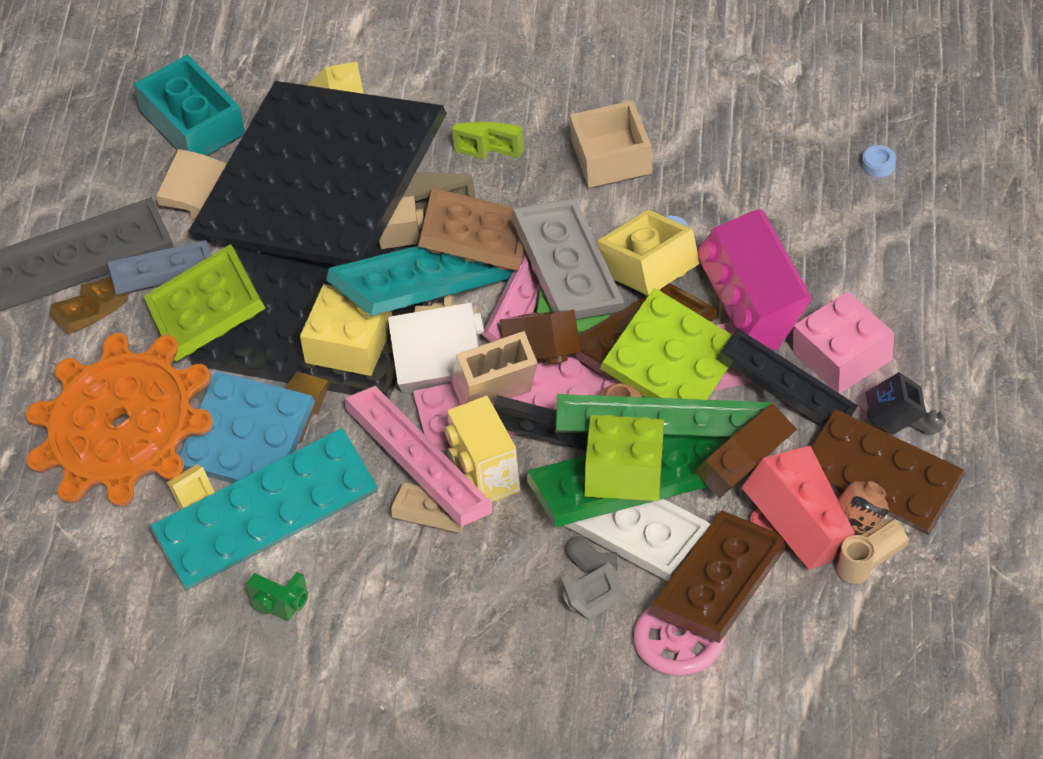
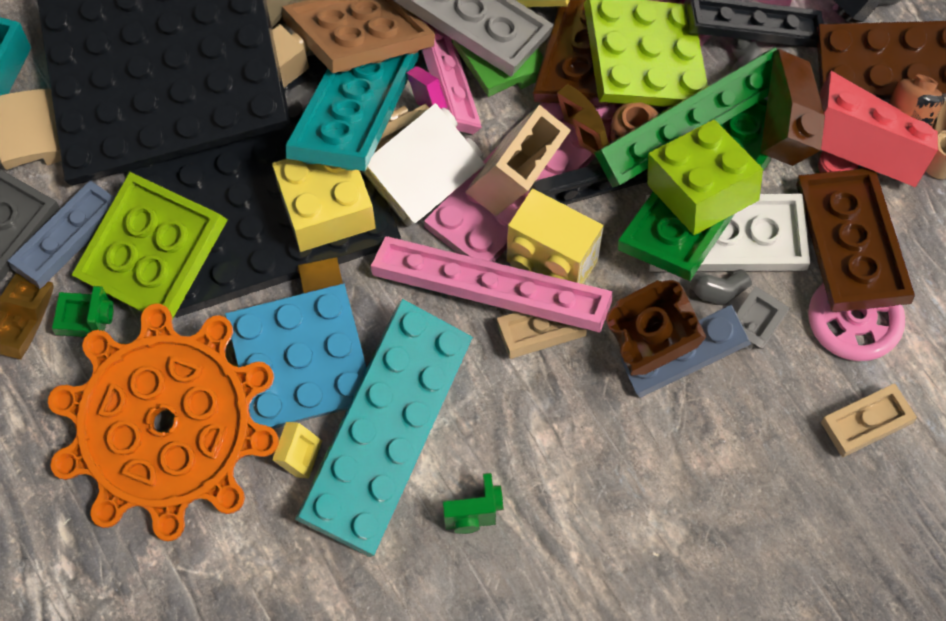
camera: 40 degrees left, 15 degrees up
(133, 323) = (82, 313): none -> green bracket
(485, 297) = (426, 88): none -> dark pink tile
(502, 541) = (655, 326): none -> reddish brown slope
(517, 579) = (723, 337): none -> sand blue plate
(549, 333) = (509, 97): reddish brown brick -> none
(577, 375) = (584, 117): none -> pearl gold slope
(616, 707) = (868, 420): none -> tan plate

